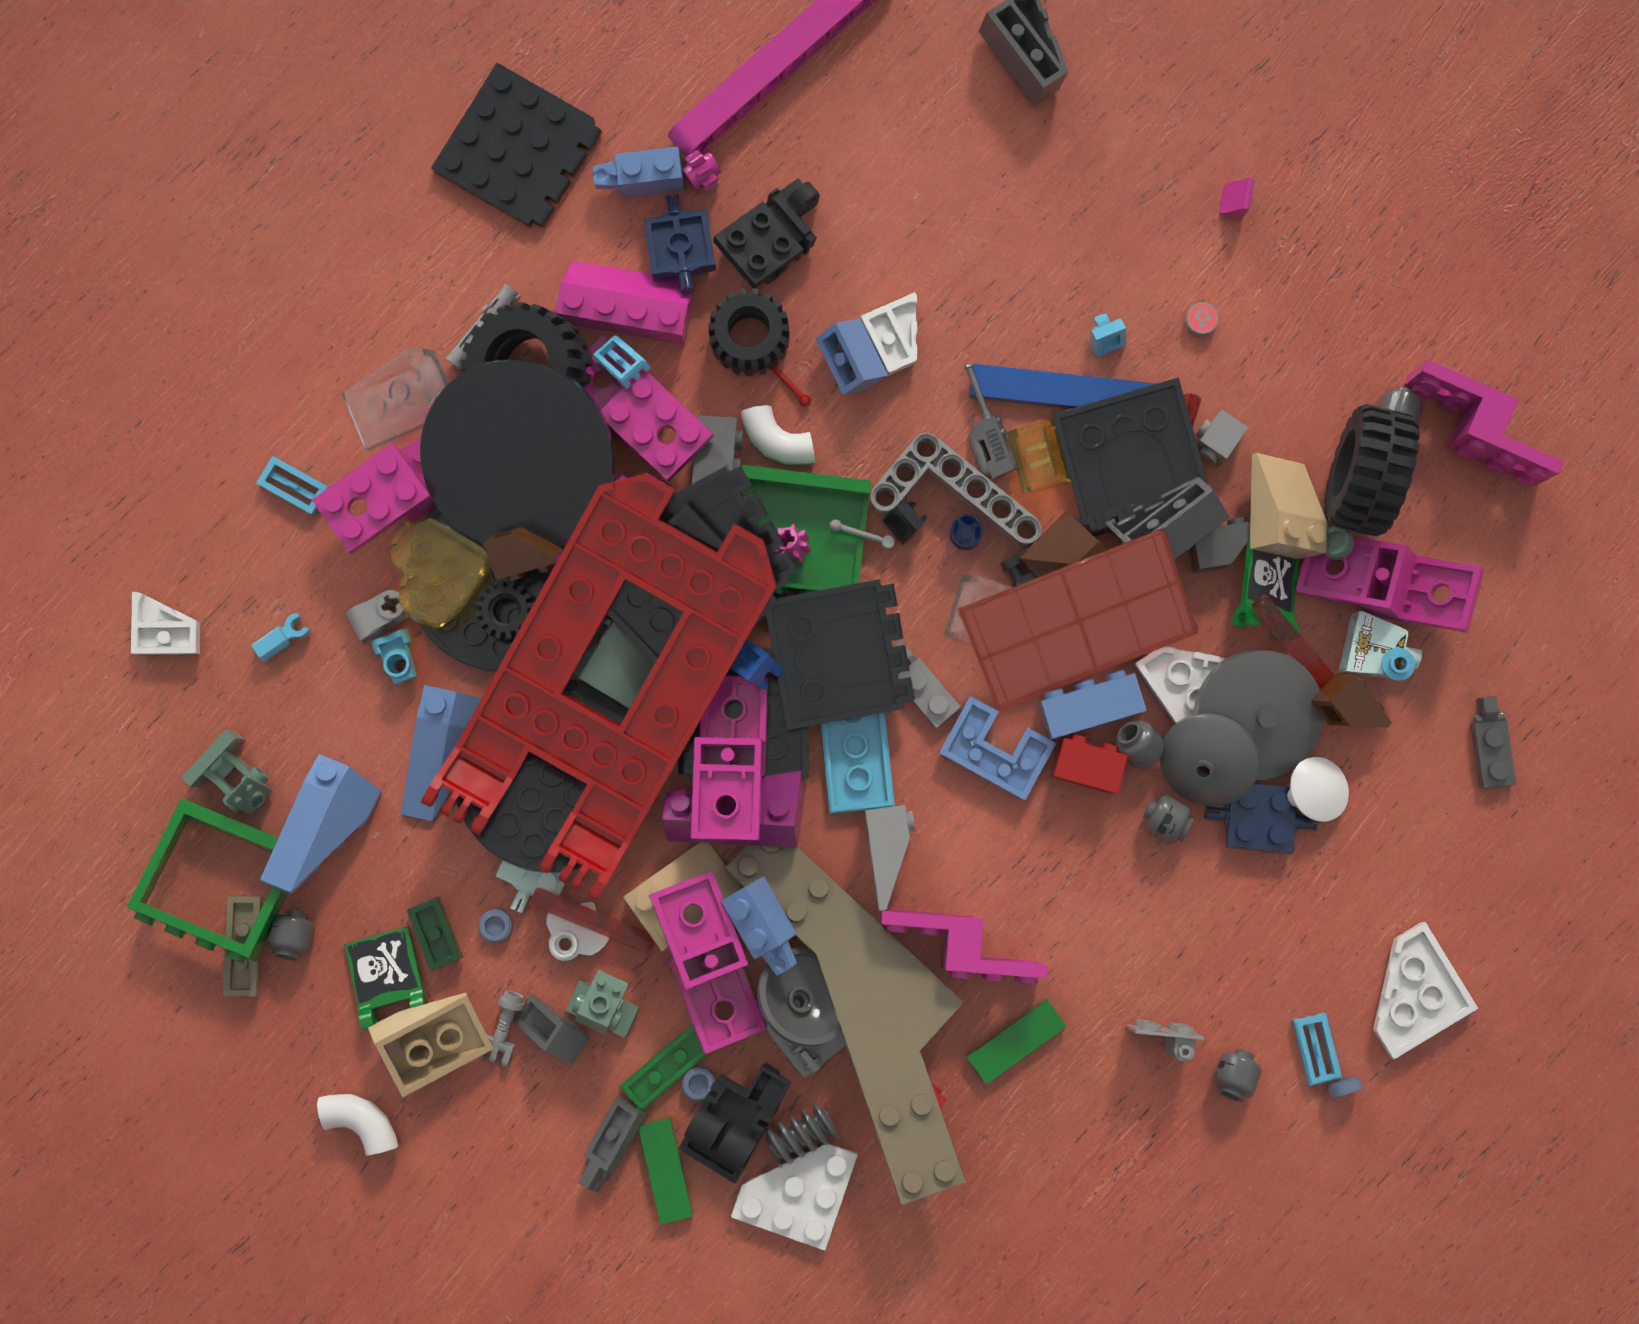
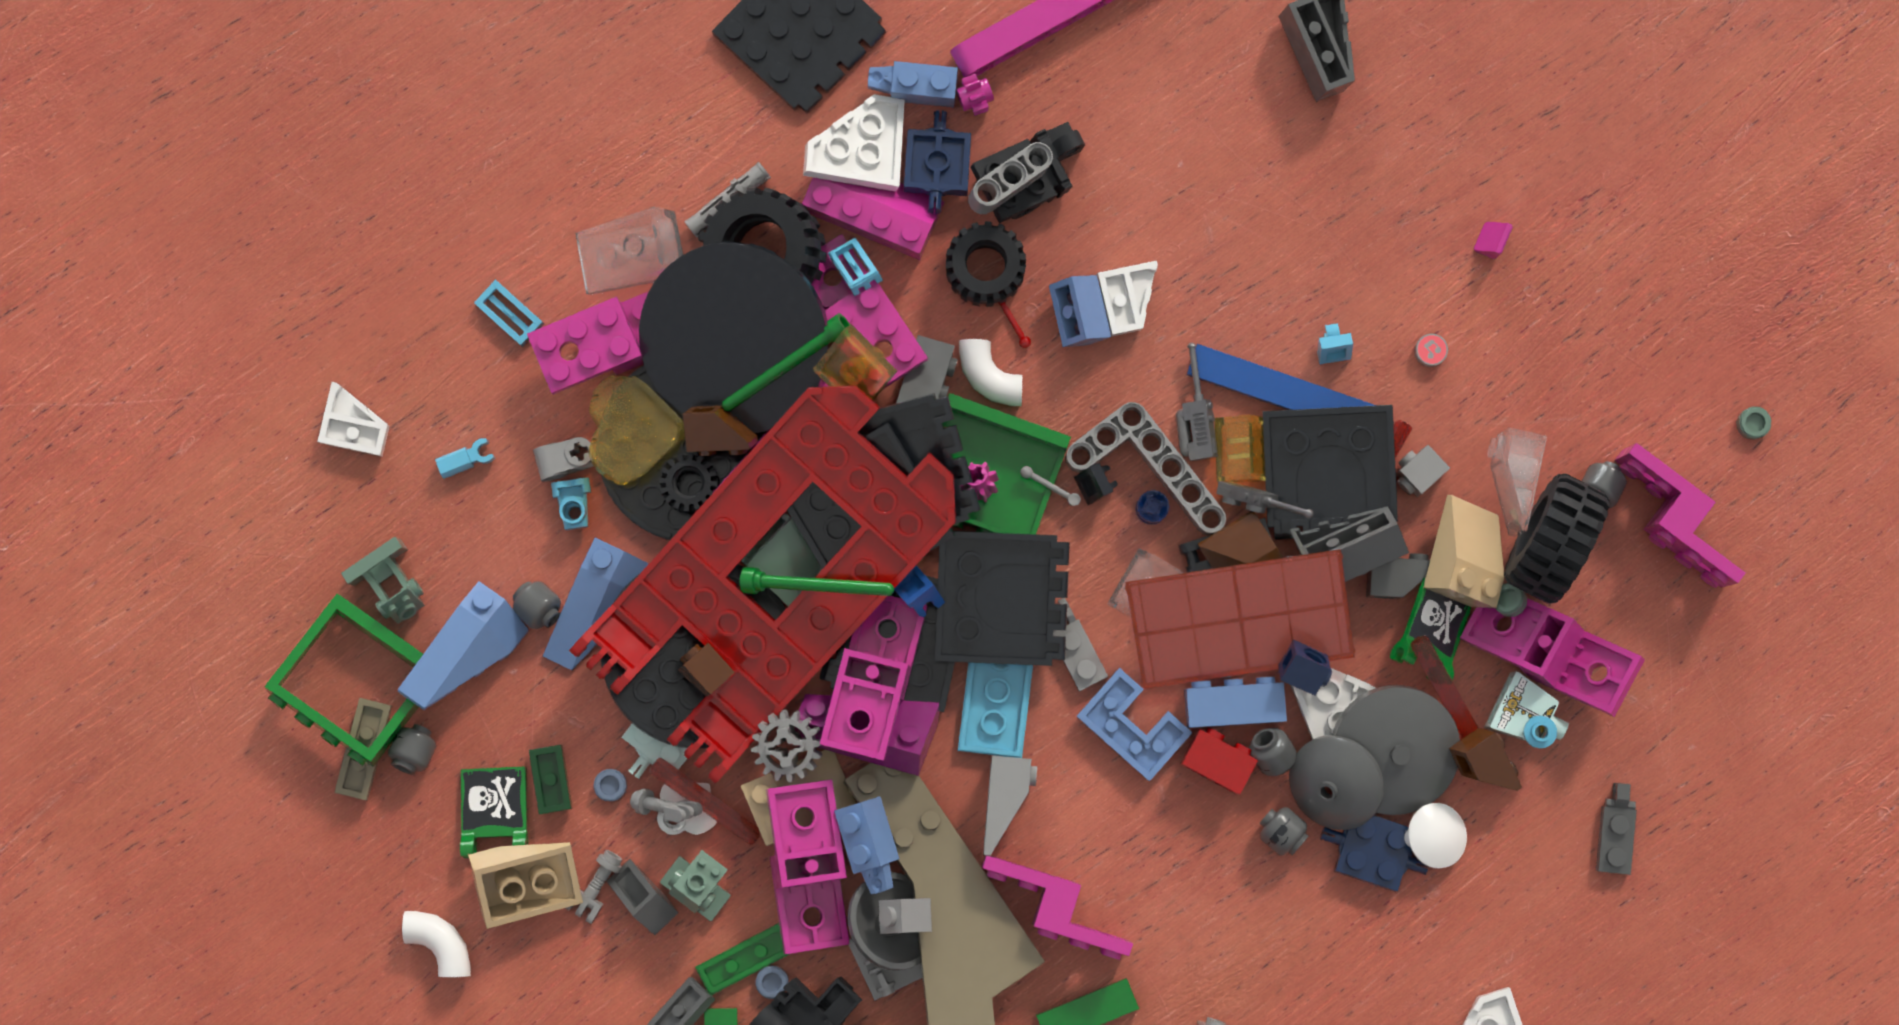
camera: 10 degrees right, 0 degrees up
(382, 764) = (536, 605): none -> dark grey head
(532, 934) = (644, 801): none -> light grey hinge
(560, 789) = (705, 668): none -> reddish brown slope
(590, 691) = (754, 580): none -> green piece
(600, 245) = (861, 146): none -> white plate
(615, 423) = (831, 332): none -> green piece
(641, 450) = (855, 362): none -> clear yellow tile
(663, 860) = (786, 730): none -> light grey gear
(757, 226) = (1019, 166): none -> light grey beam
(815, 989) = (905, 915): none -> light grey brick
(1066, 500) = (1256, 499): none -> flat silver piece
(1153, 654) = (1305, 668): none -> dark blue brick
(1313, 417) = (1515, 472): none -> clear slope
(1529, 319) = (1753, 423): none -> sand green tile

